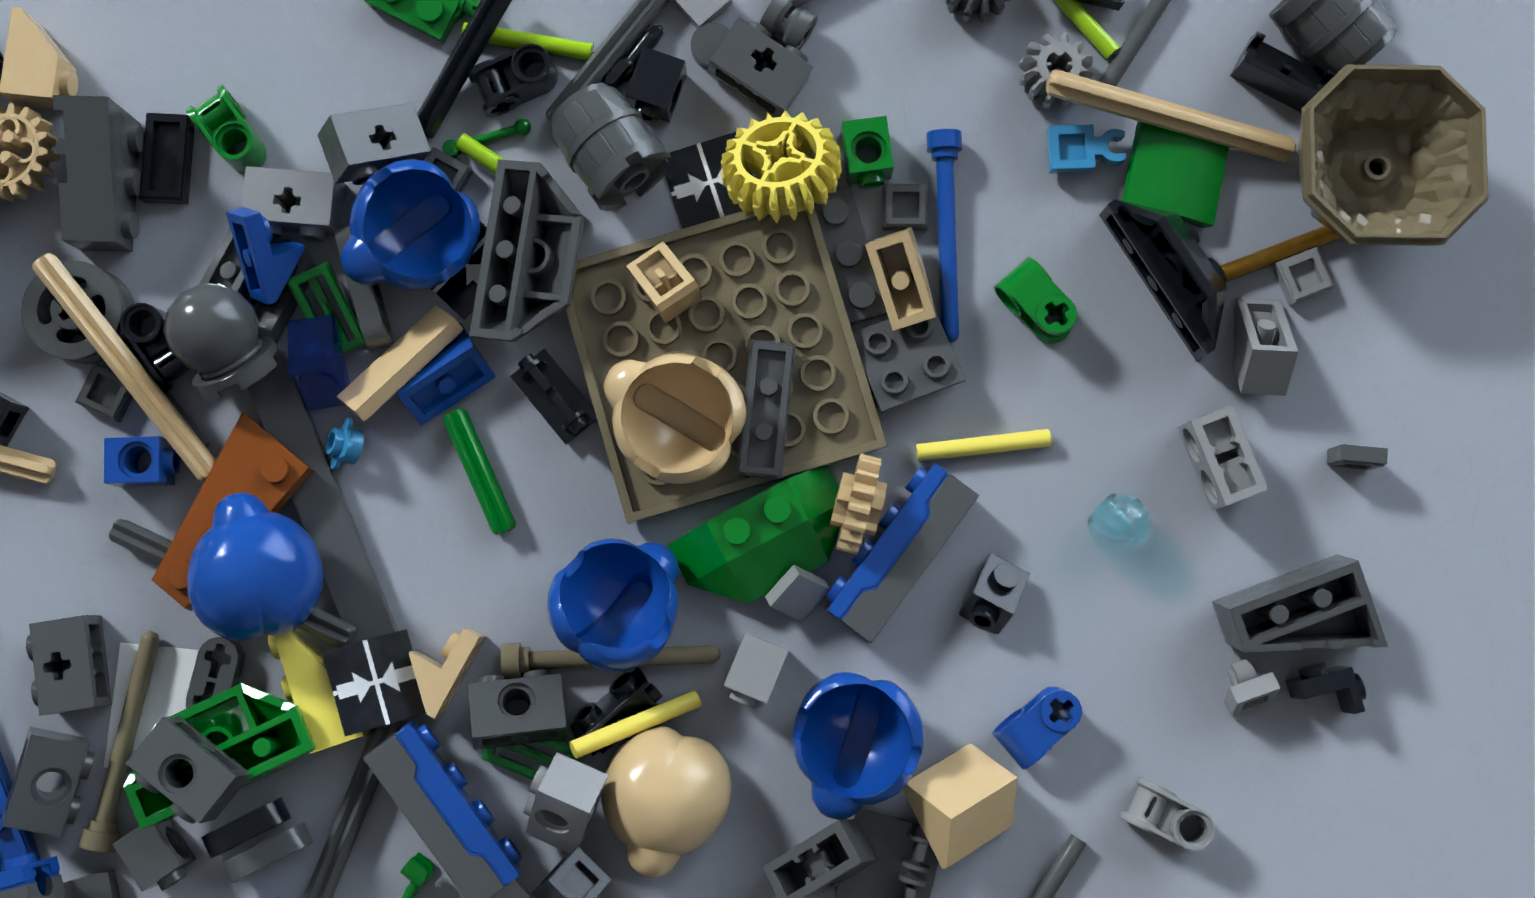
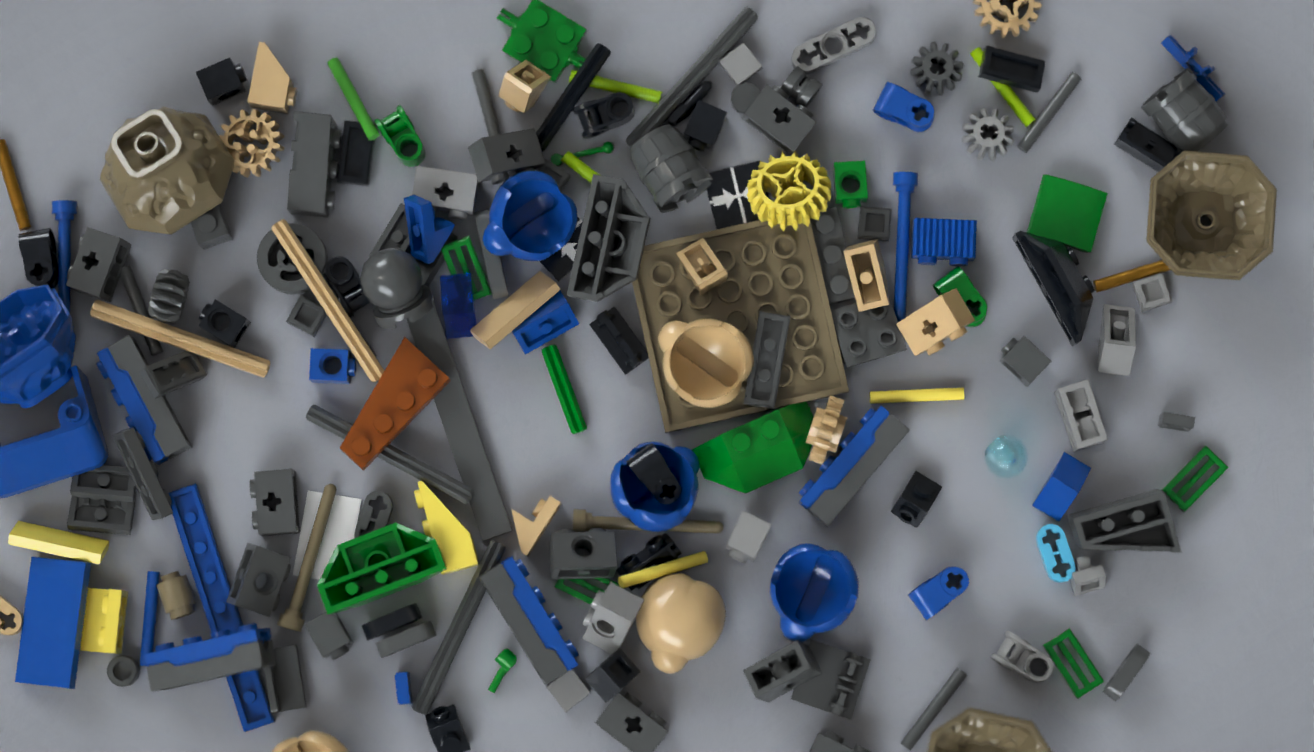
camera: 10 degrees right, 0 degrees up
(156, 82) = (353, 99): none -> bright green bar
(214, 777) = (350, 561): dark grey brick -> none
(253, 571) = (413, 446): blue piece -> none
(344, 444) = (472, 363): dark azure plate -> none
(345, 70) = (486, 102): none -> dark grey bar
(373, 682) = (487, 528): black sticker -> none
(391, 45) = (523, 86): none -> tan slope
(613, 587) = (655, 474): none -> black piece
(797, 593) = (779, 488): light grey tile -> none
(931, 39) = (900, 107): none -> blue piece
(962, 802) = (883, 639): tan slope -> none
(1005, 223) = (943, 240): none -> blue brick
(1019, 319) = (935, 322): none -> tan brick
(1076, 149) = (997, 191): dark azure plate -> none
(1133, 384) = (1024, 360): none -> dark grey brick
(1170, 116) = (1064, 173): tan axle -> none
(1189, 662) = (1063, 551): none -> medium azure beam
(1201, 562) = (1061, 487): none -> blue slope
(1213, 784) = (1058, 640): none -> green tile
(1317, 825) = (1126, 672): none -> dark grey beam
(1319, 680) = (1135, 573): black bracket -> none
(1397, 496) = (1176, 498): none -> green tile

